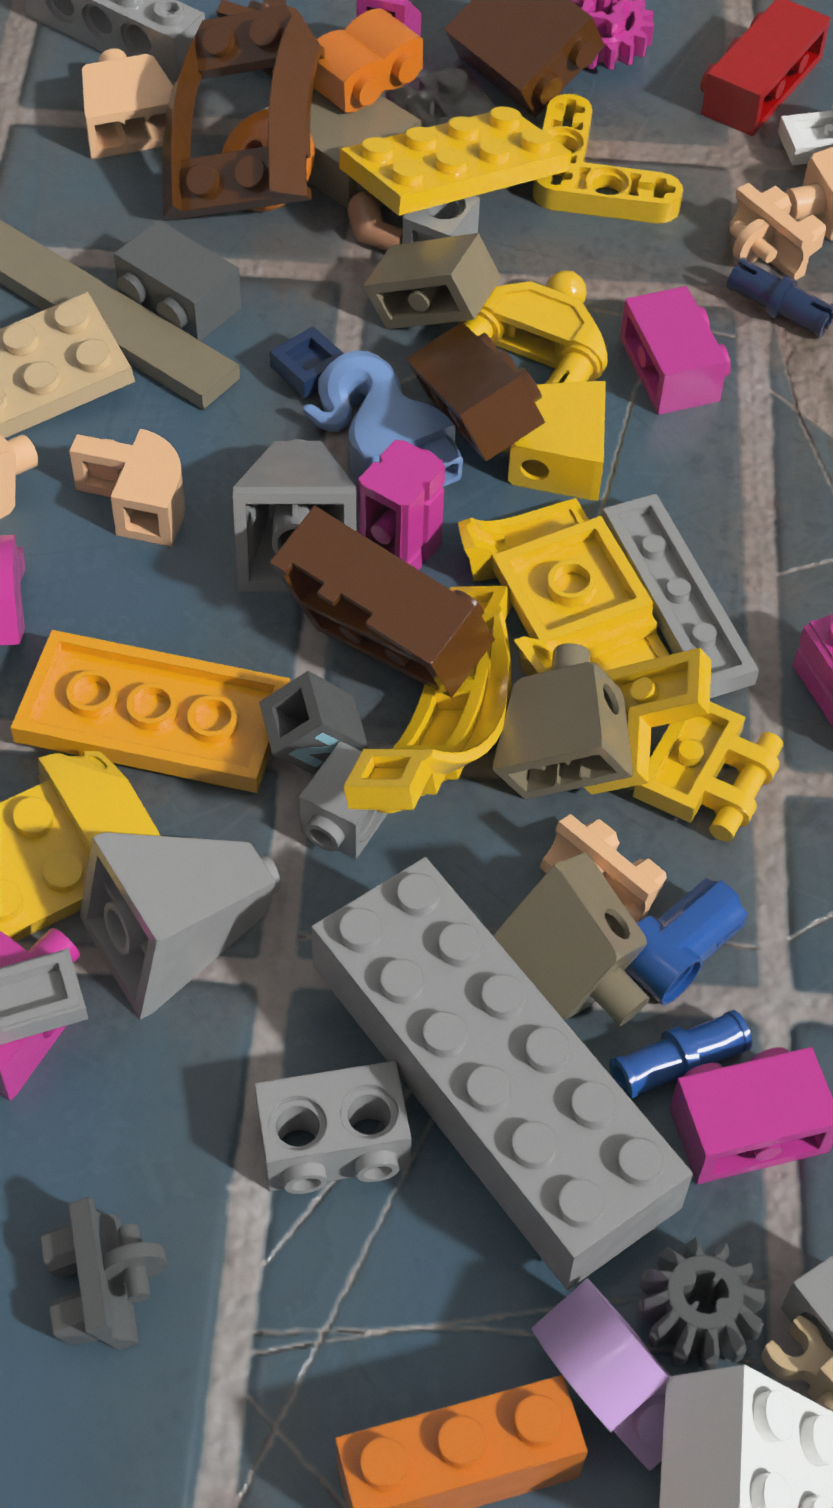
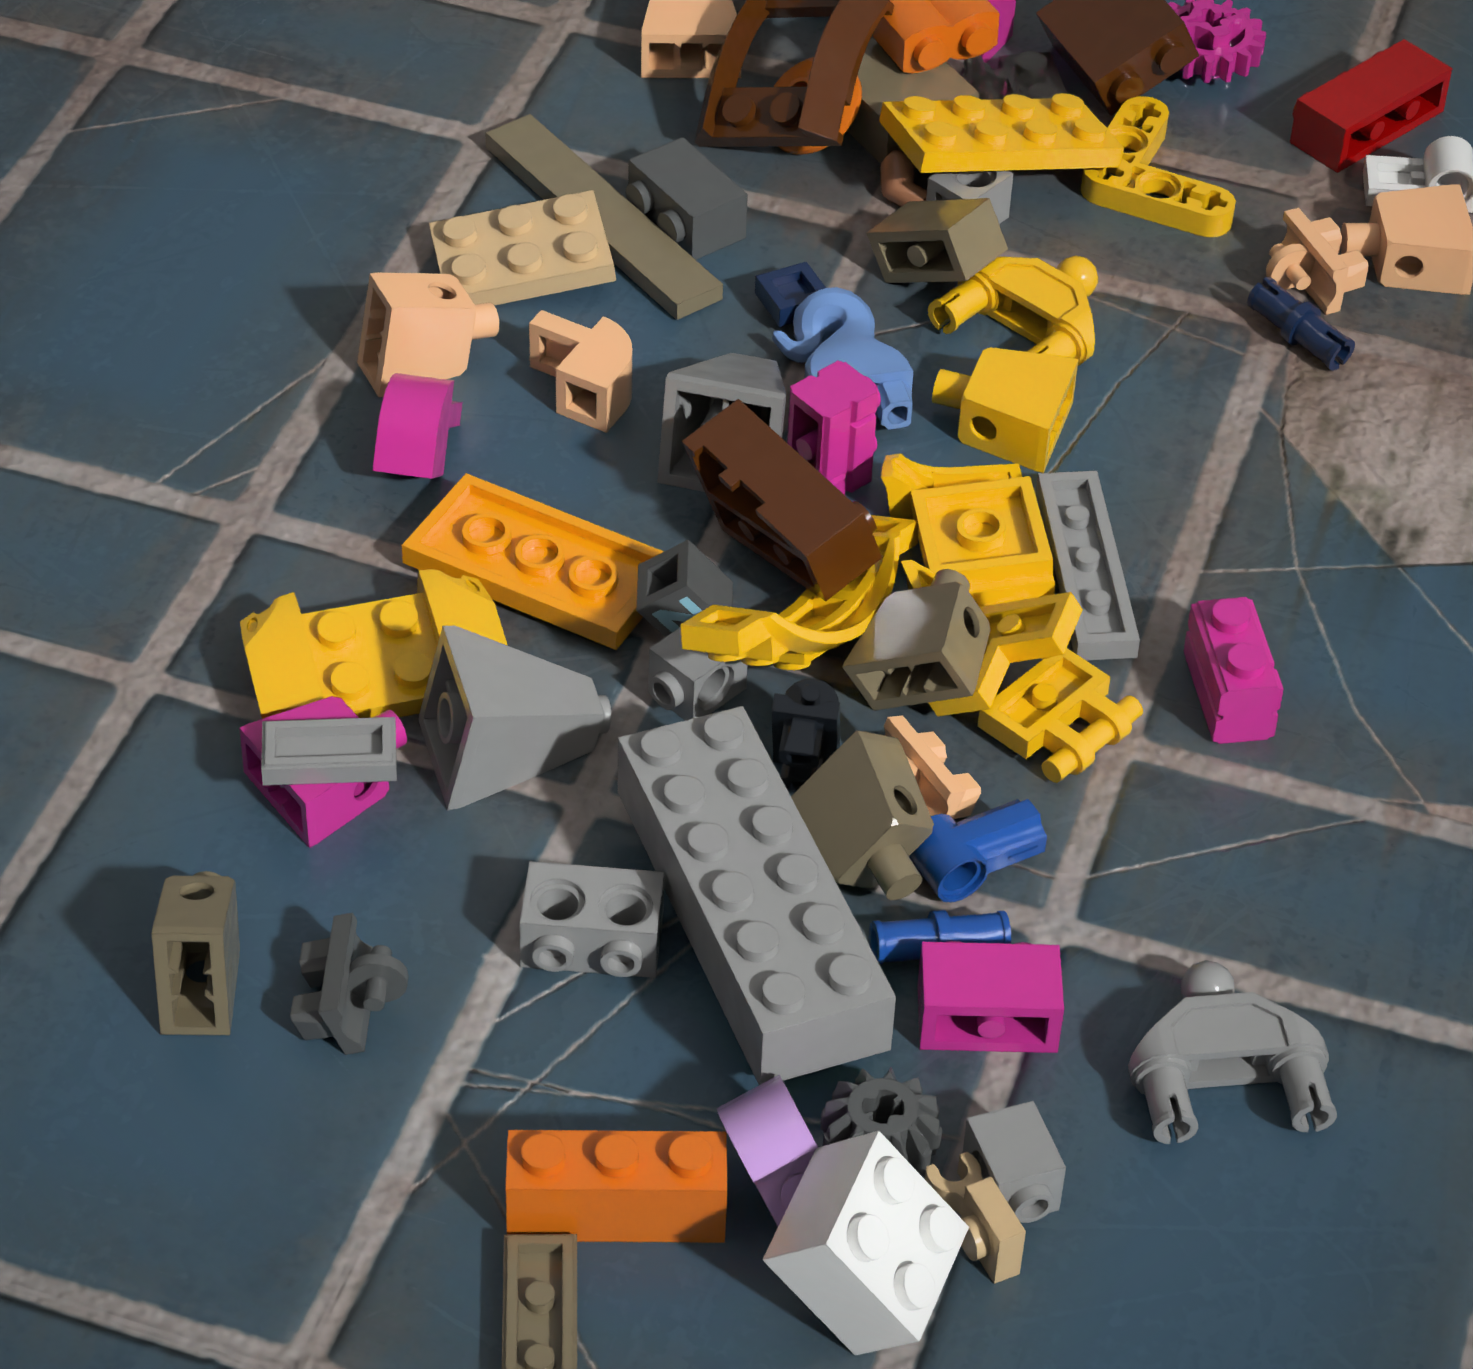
camera: 15 degrees right, 10 degrees down
(478, 389) = (943, 339): reddish brown brick -> none
(483, 854) = (804, 730): none -> black hips
(674, 350) = (1168, 349): dark pink brick -> none

